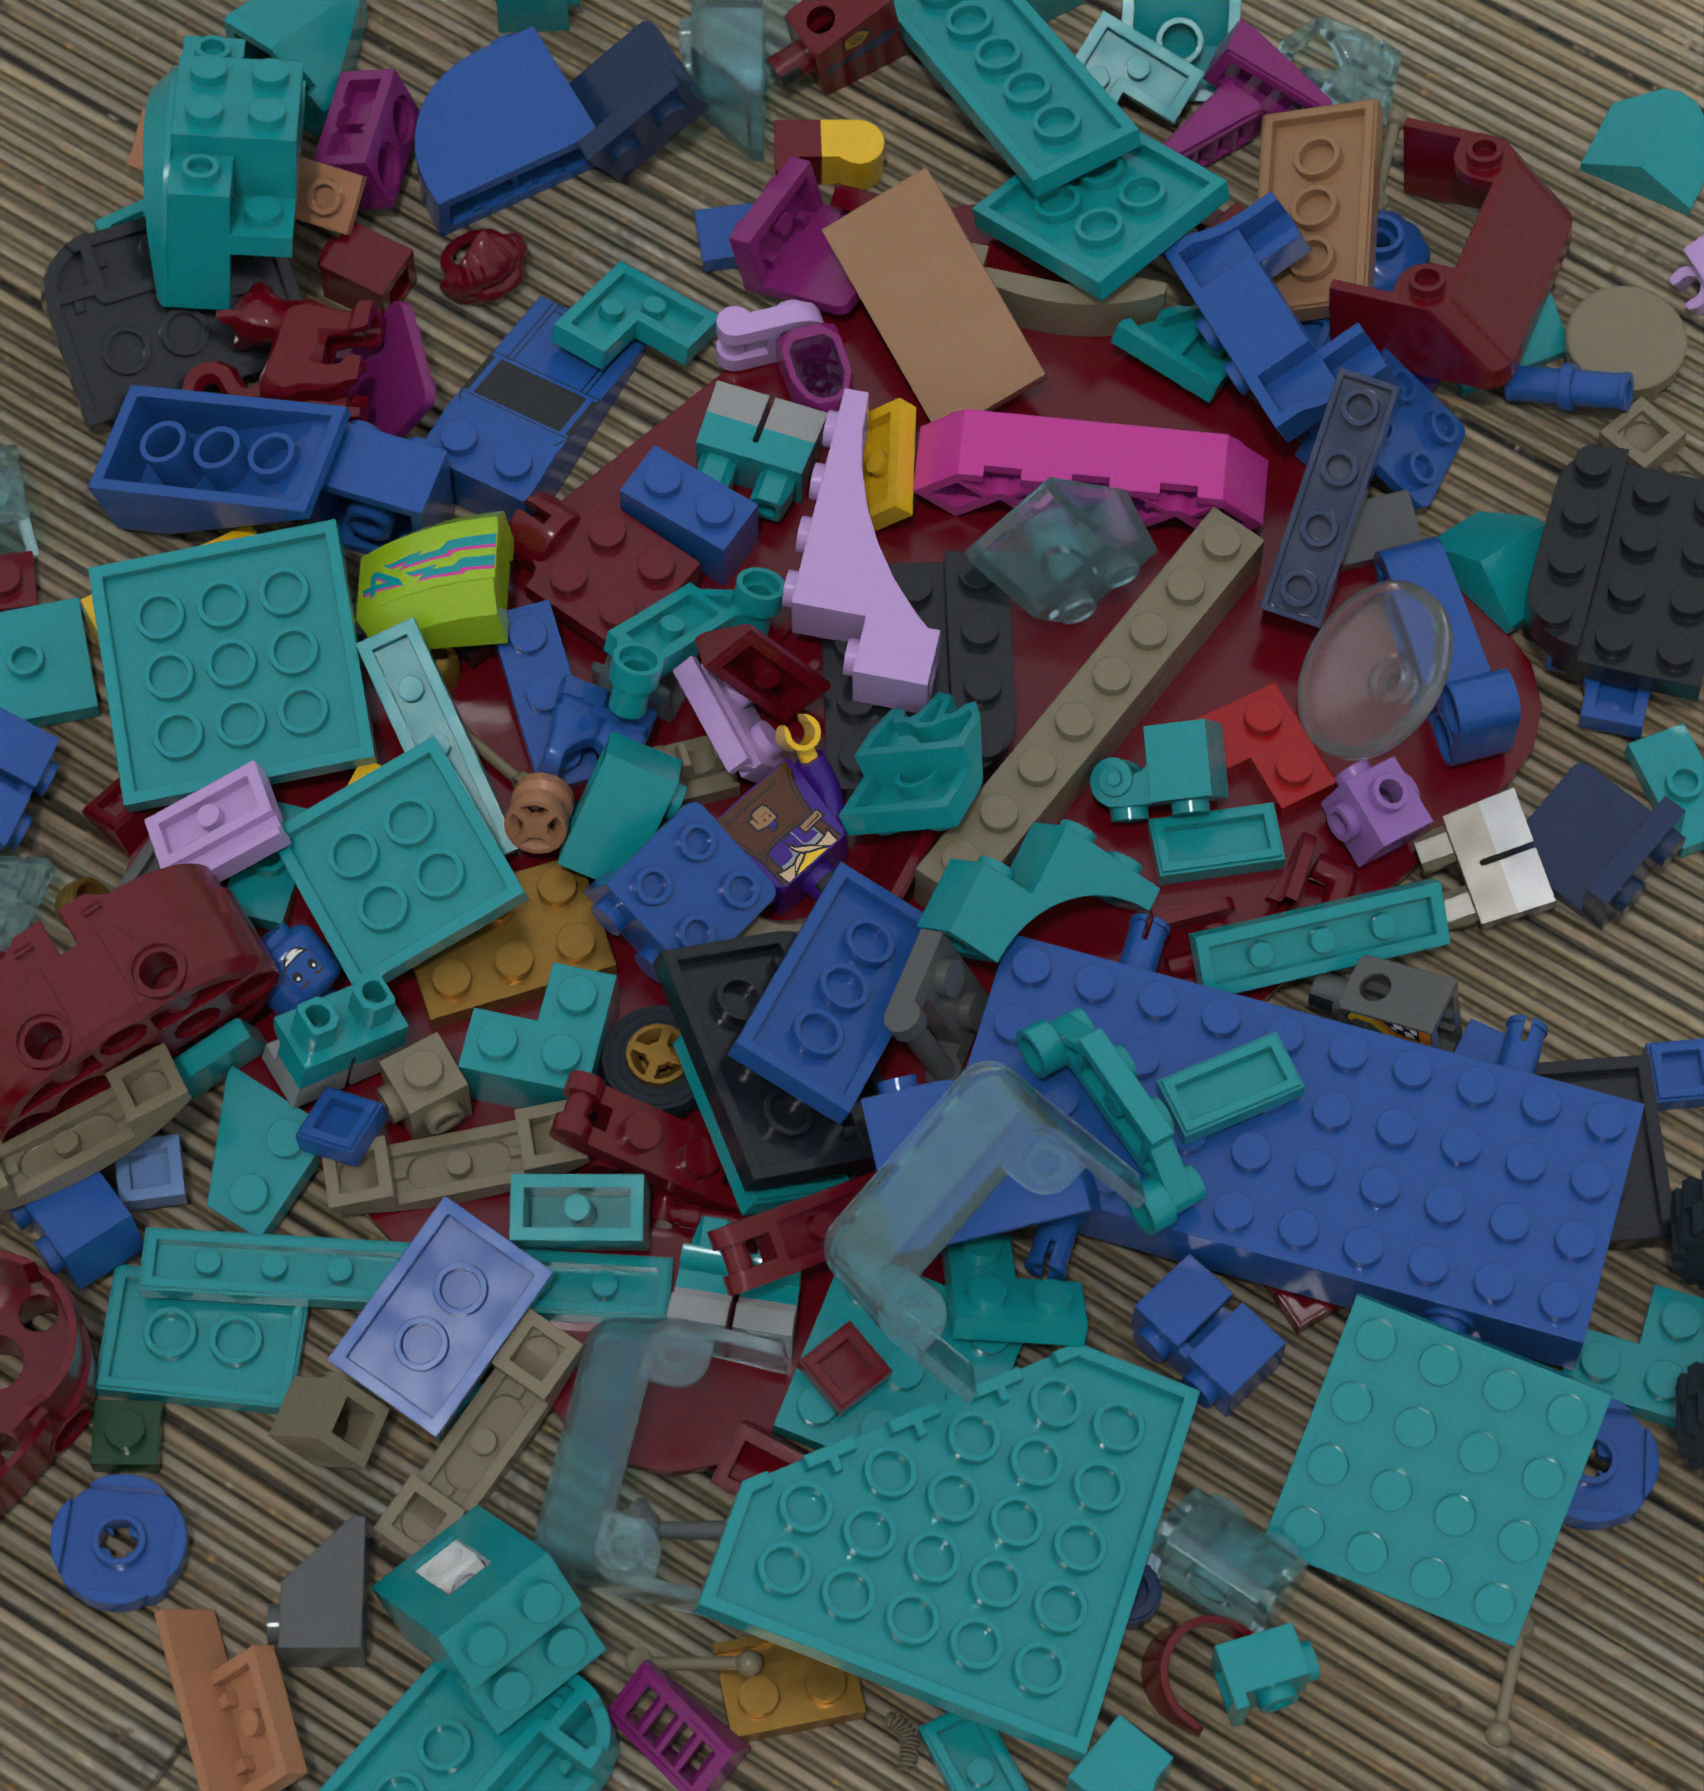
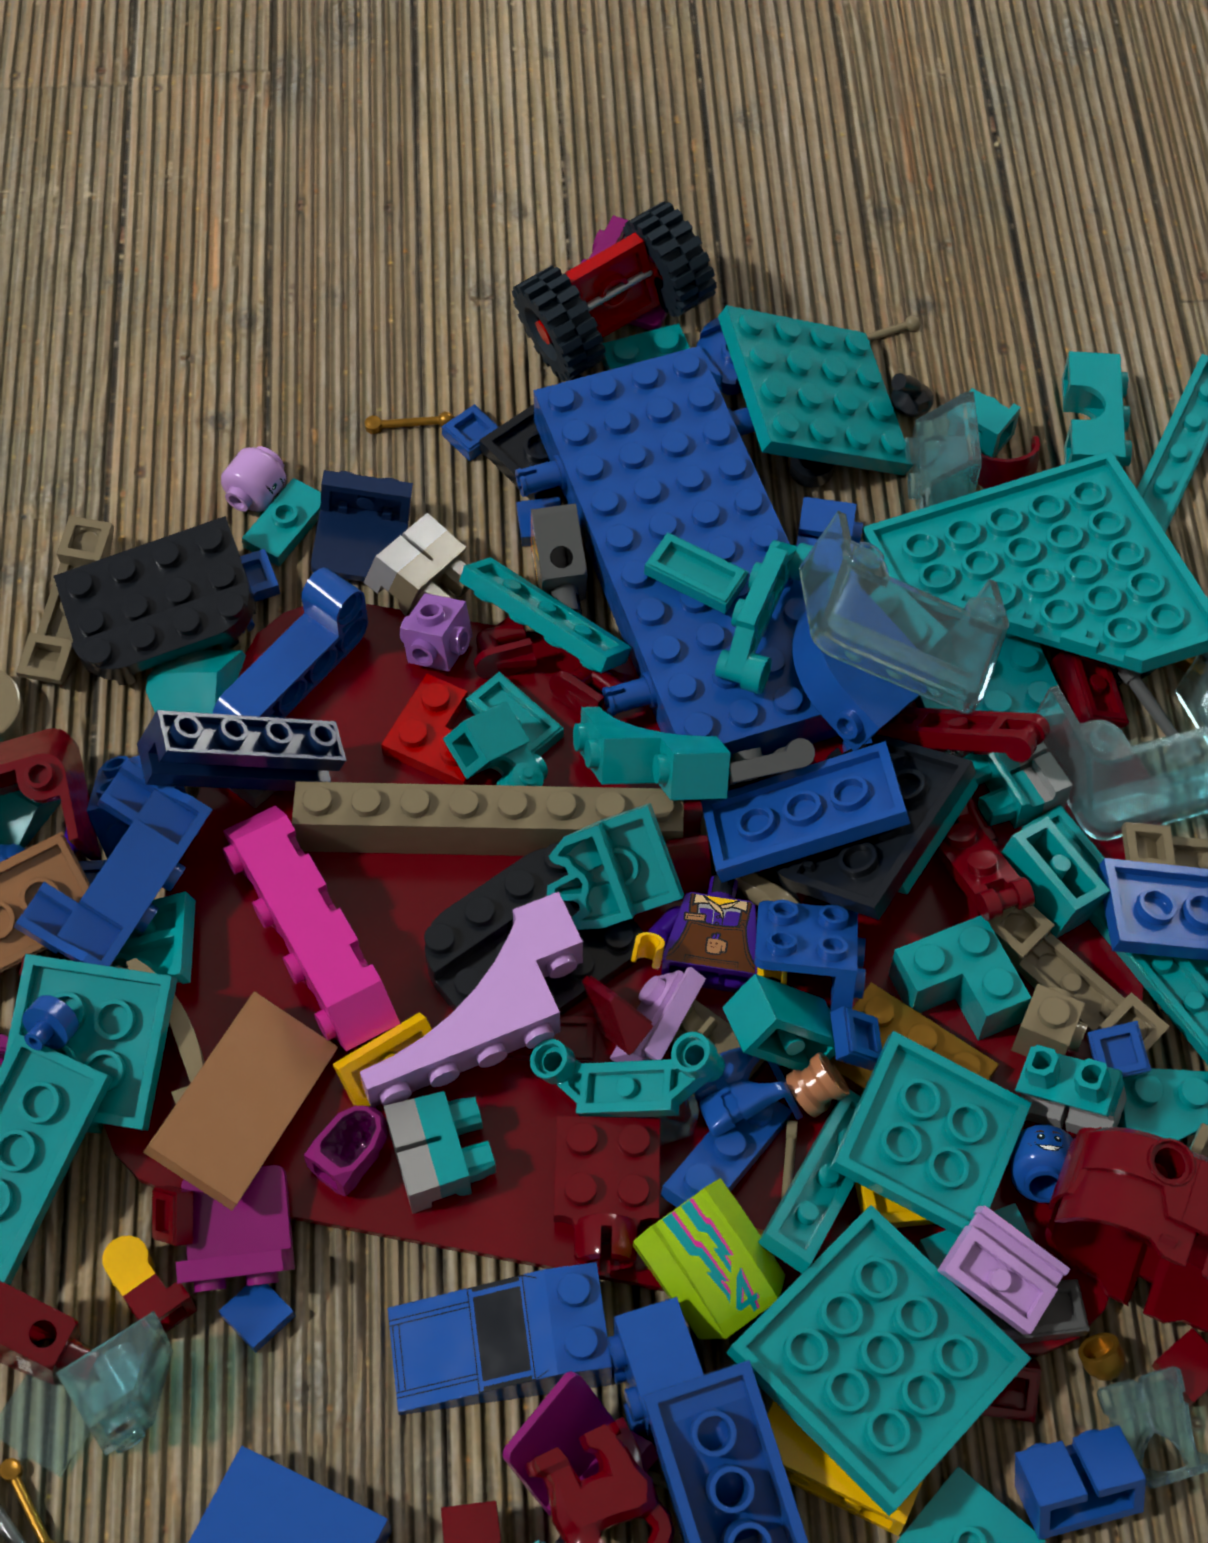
camera: 125 degrees left, 5 degrees down
(489, 268) = (406, 1448): dark red piece -> none
(554, 873) = (856, 1037): none -> blue tile
(630, 307) = (371, 1327): teal plate -> none
(636, 100) = (188, 1445): dark blue bracket -> none
(644, 1040) = (927, 902): black wheel -> none
(692, 513) = (521, 1154): blue brick -> none
(750, 337) = (321, 1195): lavender plate -> none
(844, 1368) = (1014, 685): dark red tile -> none
(1064, 549) = (386, 885): clear light blue slope -> none
(1125, 155) = (49, 1023): none -> blue tile
(1369, 1625) = (910, 396): none -> black plate
(1375, 670) = (375, 673): clear dish -> none
(1571, 387) = (31, 699): blue pin -> none

